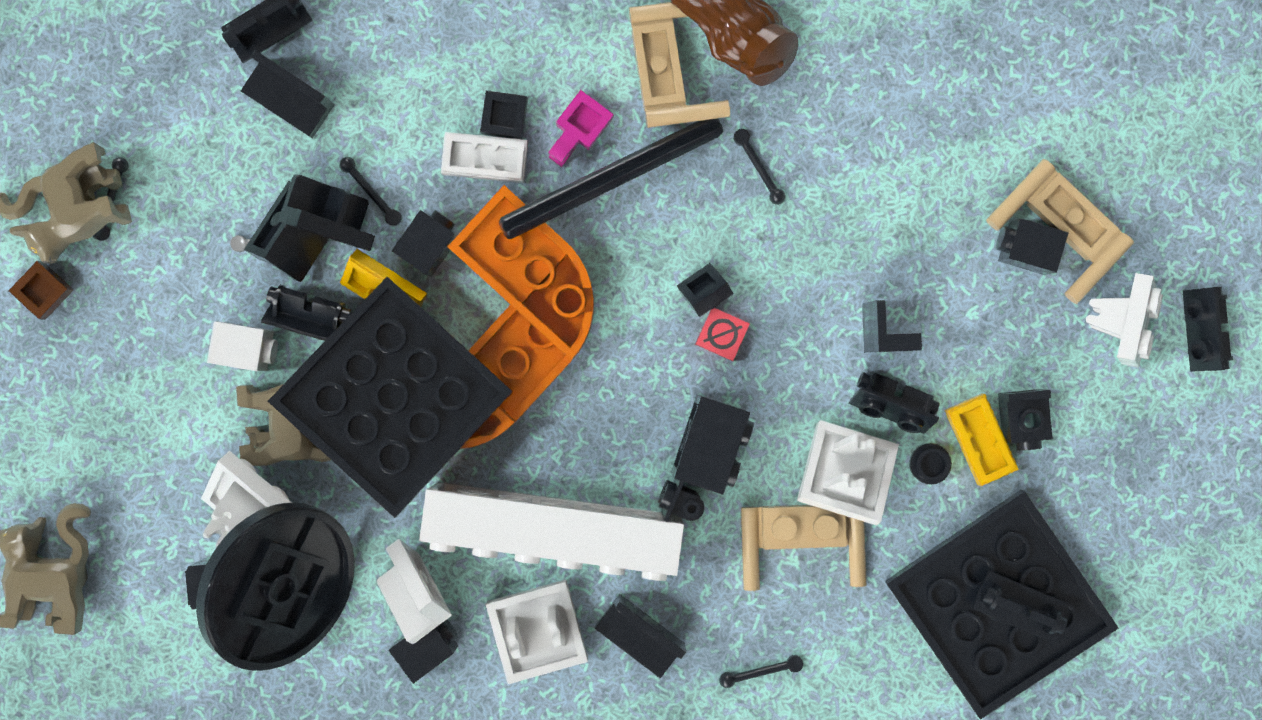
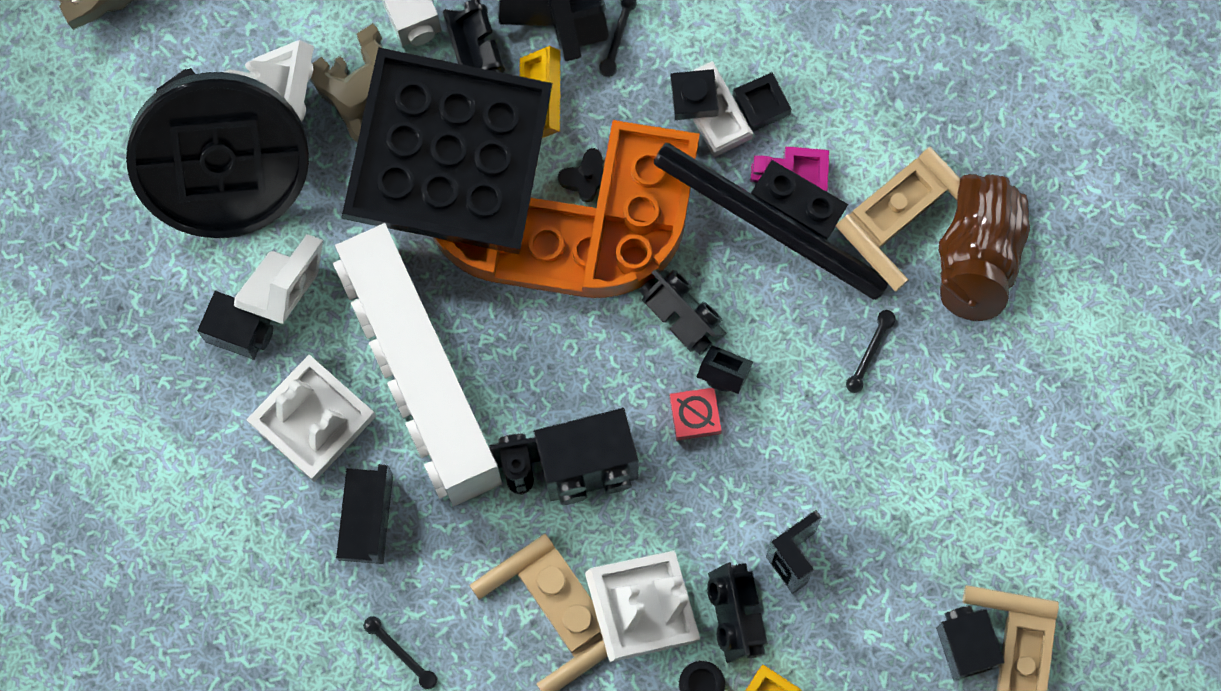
camera: 60 degrees right, 15 degrees down
(426, 242) = (603, 100): black brick -> none
(466, 166) = (694, 94): none -> black plate
(475, 294) = (586, 177): none -> black piece
(607, 141) = (799, 199): none -> black hinge
(653, 284) = (695, 320): none -> black hinge

